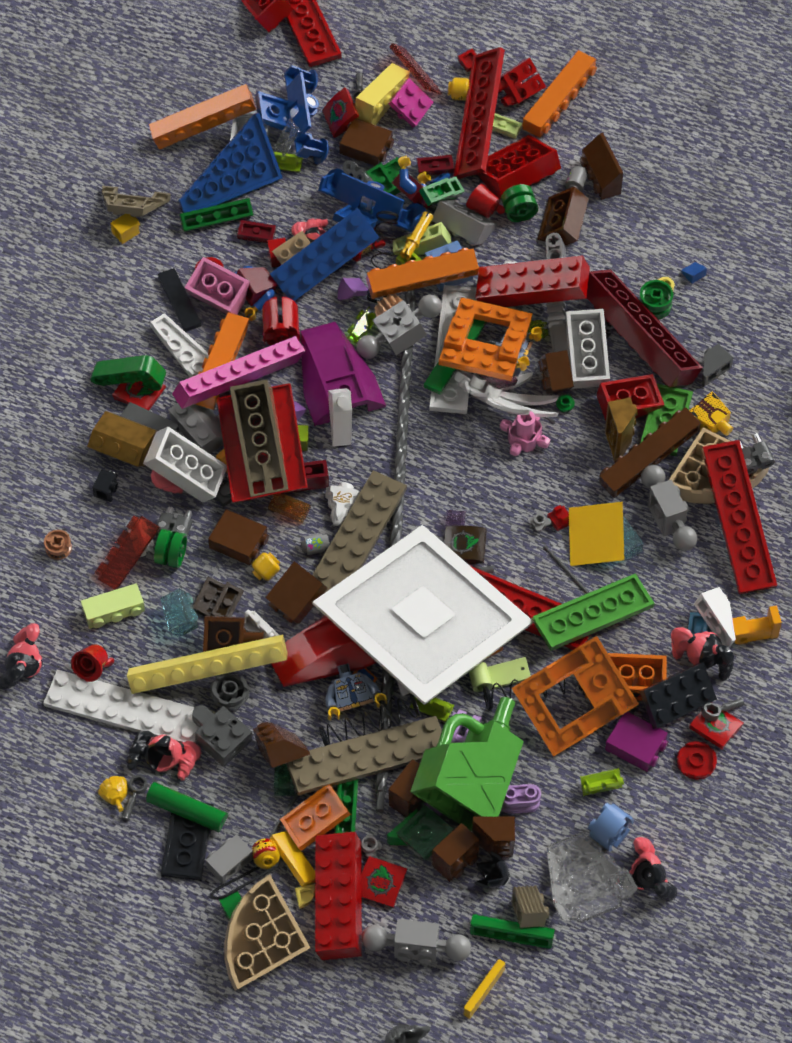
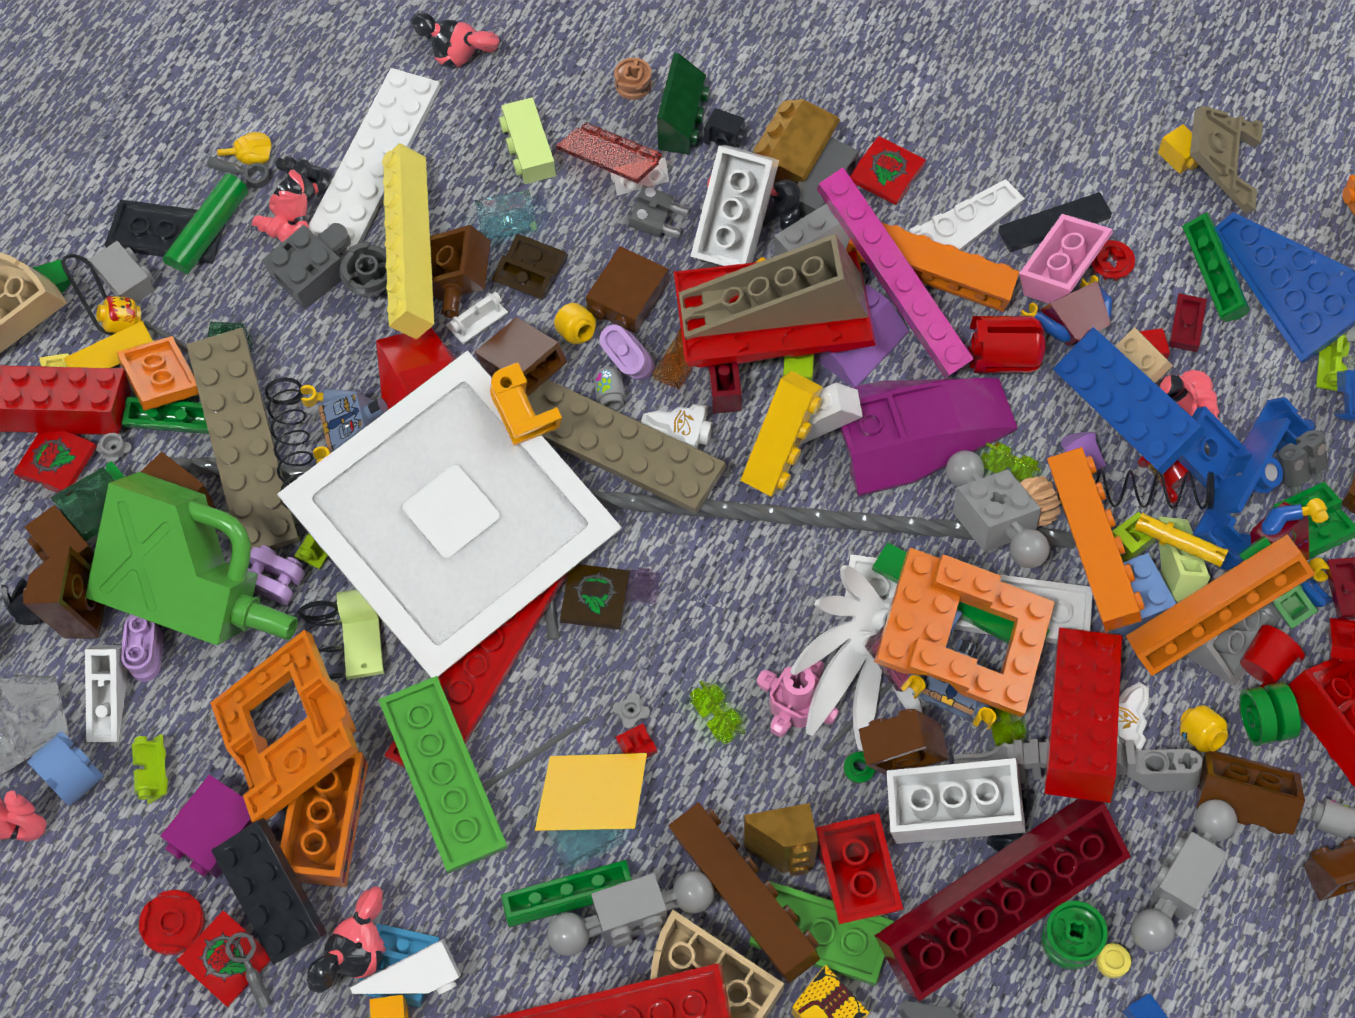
camera: 95 degrees right, 5 degrees up
(88, 511) = (681, 107): none -> dark green slope
(90, 662) = (438, 112): red hat -> none
(128, 370) = (907, 152): green beam -> none
(170, 548) = (609, 201): green wheel -> none
(278, 744) = (267, 324): reddish brown slope -> none
(290, 531) = (627, 352): none -> lavender brick
(352, 572) = (516, 409): none -> light orange piece
(358, 432) = (782, 433): none -> yellow brick
(461, 213) = (1220, 605): none -> orange brick
(529, 235) = (1203, 728): none -> yellow head
(531, 479) = (725, 720): none -> clear neon green hinge
(550, 817) = (104, 692): none -> white slope
(619, 244) = (1187, 877): none -> light grey brick
(658, 546) = (561, 894): none -> green brick

